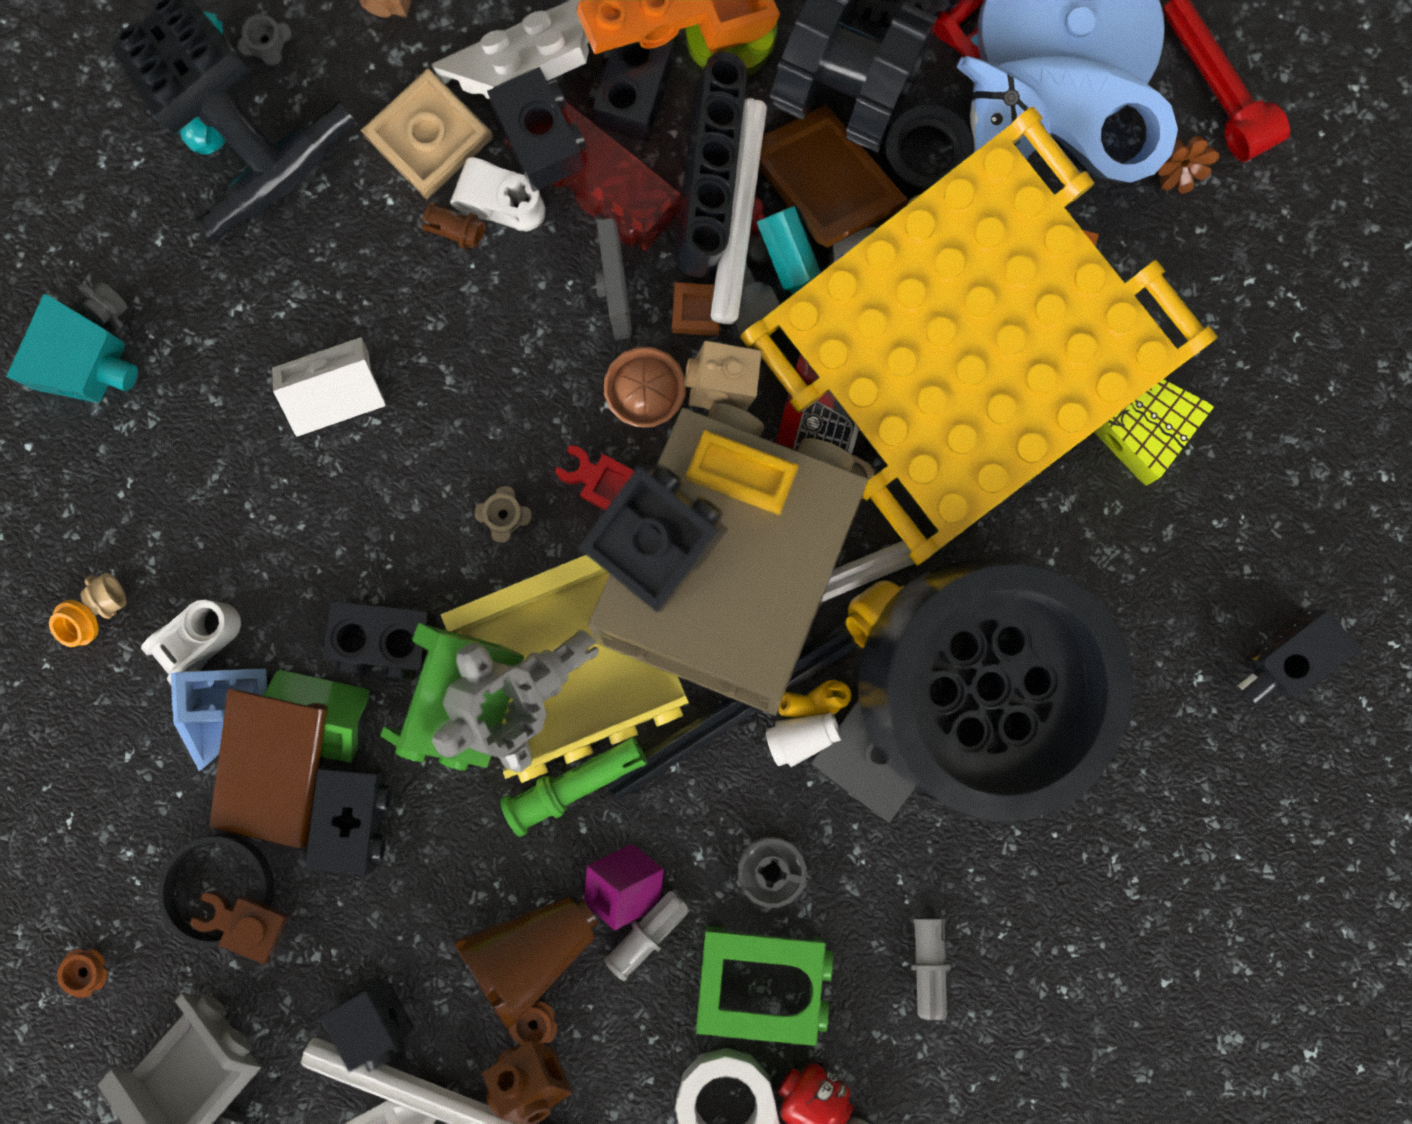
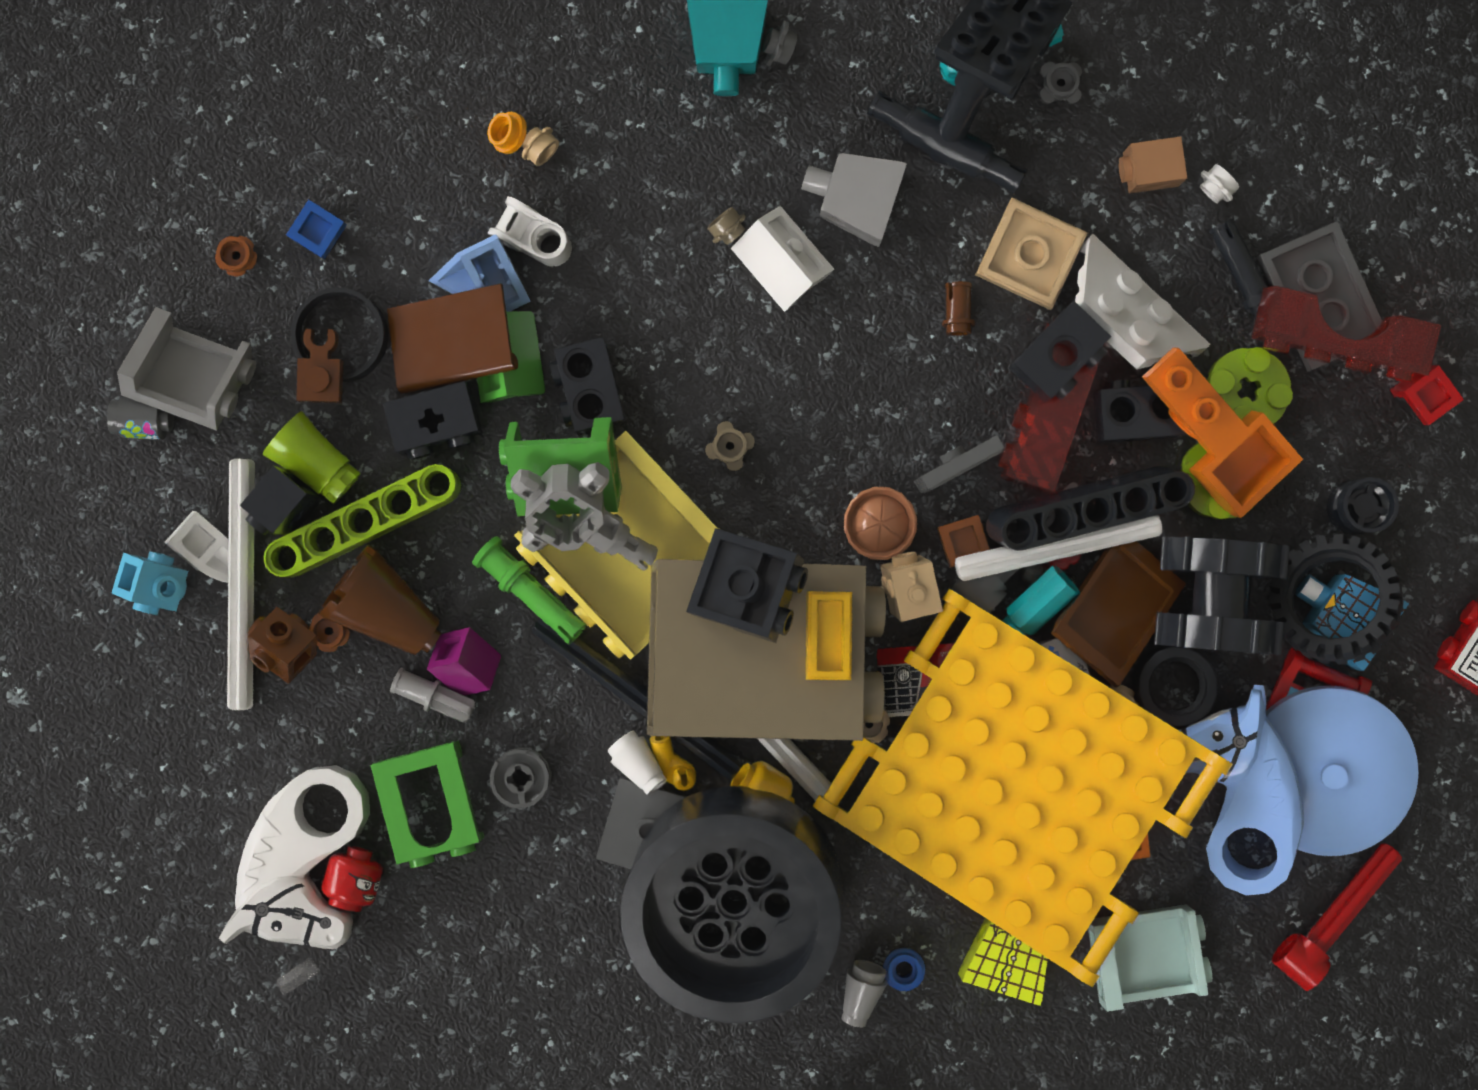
camera: 70 degrees right, 5 degrees up
(91, 871) = (316, 229): none -> blue plate
(270, 430) = (727, 226): none -> dark tan plate
(292, 281) = (857, 193): none -> light grey torso
(335, 971) = (312, 458): none -> lime plant
(417, 963) = (342, 521): none -> lime beam
(492, 196) = (997, 329): white piece -> none
(600, 480) = (786, 524): red plate -> none
(930, 968) = (492, 934): light grey axle -> none
(1132, 589) = (862, 991): none -> light grey cone
(1137, 538) = (909, 981): none -> blue plate
(1186, 164) = (1249, 910): dark orange plant -> none
(1207, 270) = (1153, 958): none -> light aqua panel

